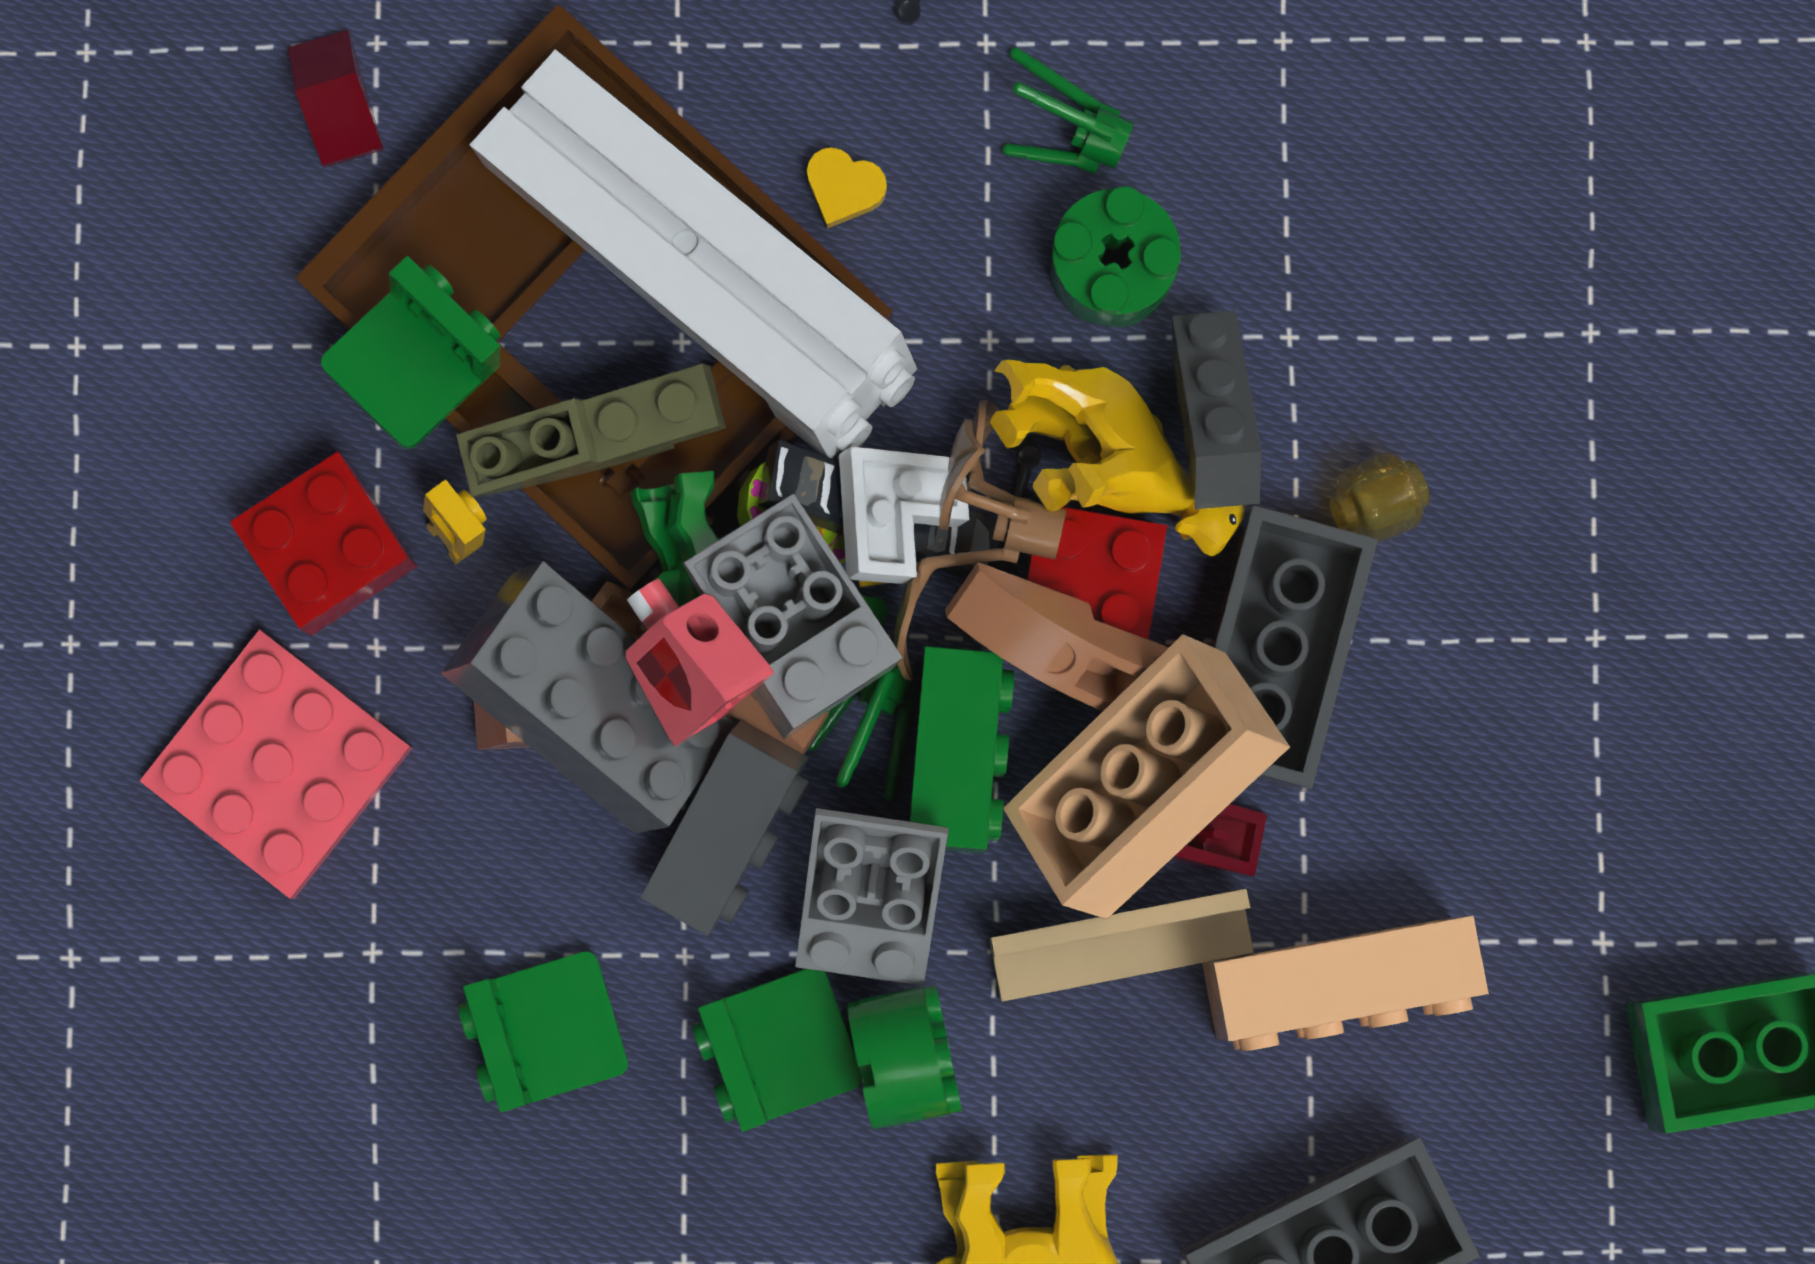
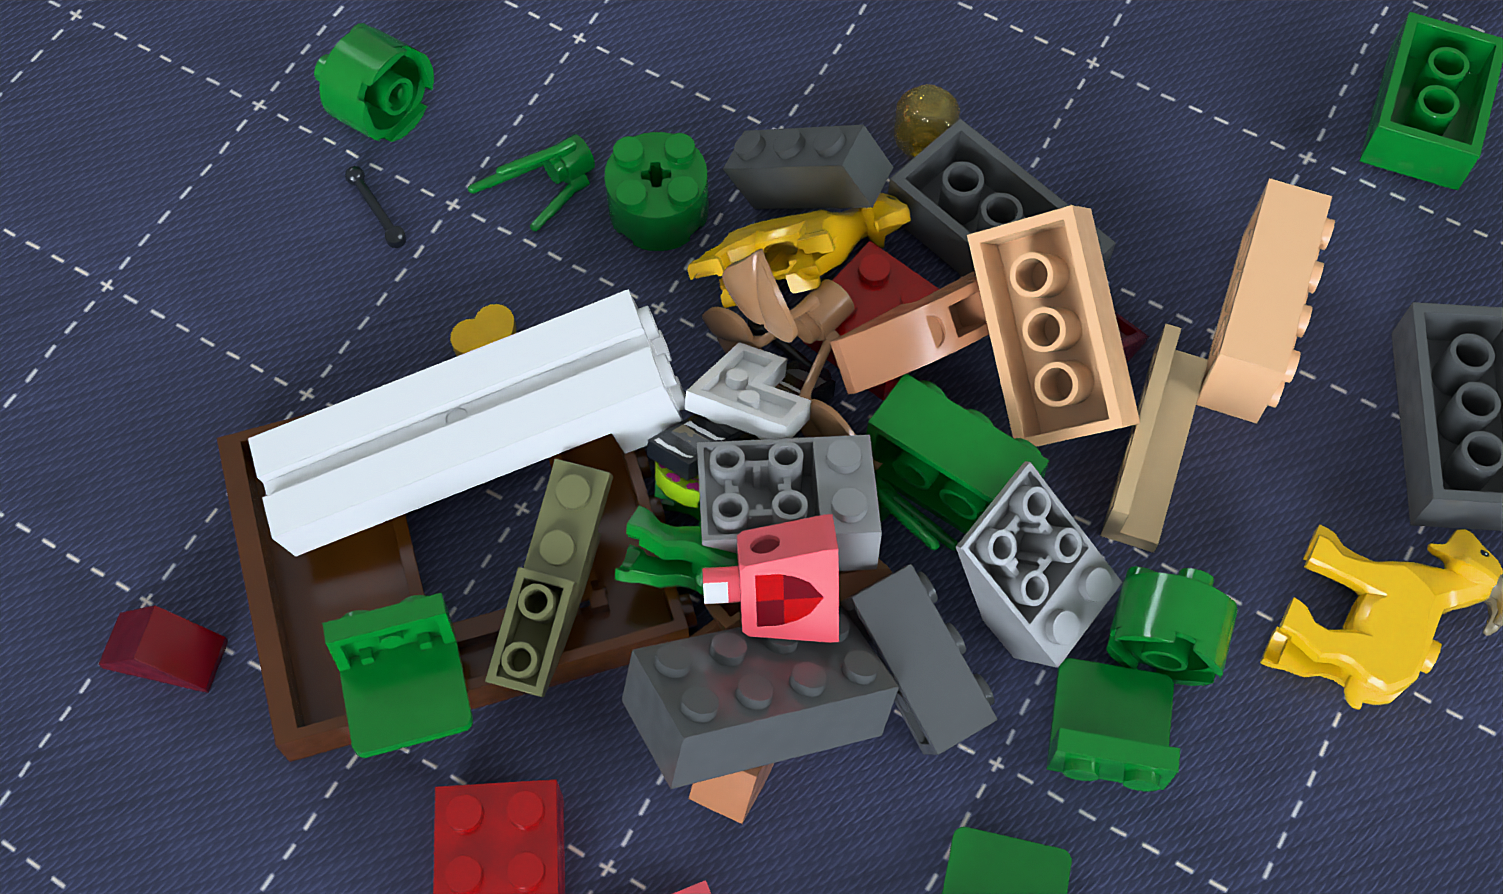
camera: 55 degrees left, 20 degrees down
(455, 520) = (551, 730): yellow plate -> none

